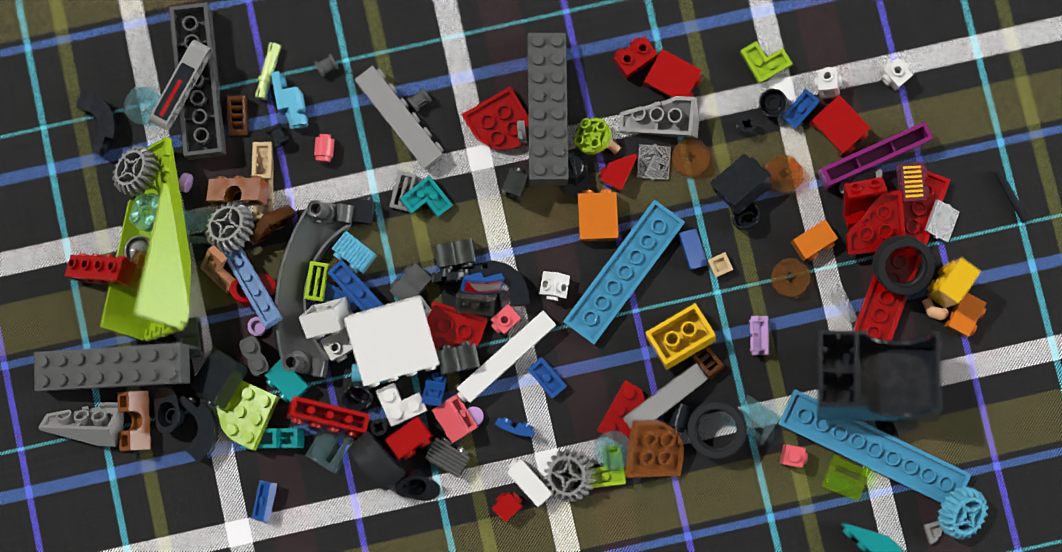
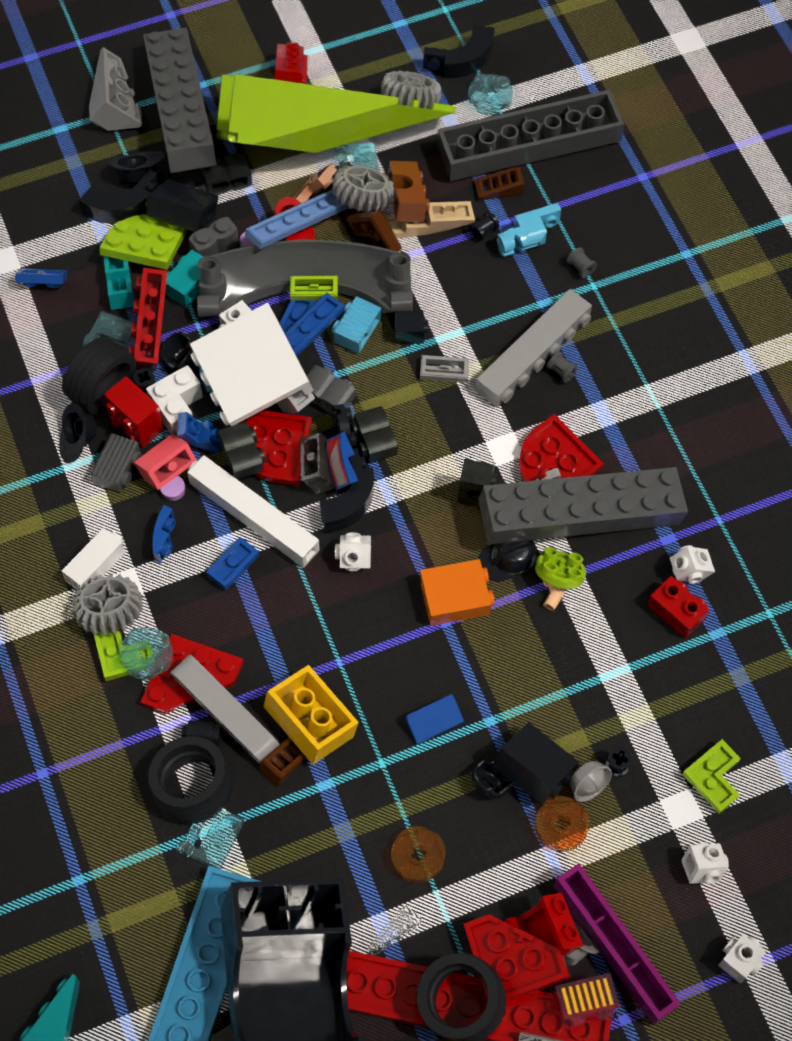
camera: 75 degrees right, 20 degrees down
(137, 406) = (141, 134): dark orange arch -> none
(180, 85) = (519, 109): beam -> none
(185, 182) = (408, 144): lavender tile -> none
(265, 79) = (567, 206): yellowish green pin -> none
(324, 148) = (479, 274): coral brick -> none
(325, 318) = (263, 288): white brick -> none
(429, 193) = (446, 390): teal plate -> none
(505, 320) = (300, 503): coral brick -> none
(507, 505) = (60, 539): red brick -> none
(605, 40) = (692, 564): none -> white brick
(617, 172) = (520, 609): red slope -> none
(624, 272) = (388, 637): dark azure plate -> none
(653, 162) = (543, 655): light grey piece -> none
(653, 450) = (151, 699): dark orange plate -> none
(665, 118) = (606, 659): light grey wedge -> none
(673, 76) = (662, 658): red panel -> none
(684, 166) = (553, 712): clear orange plate -> none
(720, 265) = (419, 757): tan plate -> none
(758, 148) = (590, 781): none -> light grey hat
(760, 335) = (341, 820): lavender hinge -> none
(773, 102) = (659, 793): black hair -> none
(793, 456) = (165, 892): coral brick -> none
(800, 109) = (659, 833): blue plate -> none
(814, 240) = (476, 879): orange brick -> none
(841, 125) = (647, 891): red panel -> none
(842, 483) = (135, 969): clear neon green plate -> none

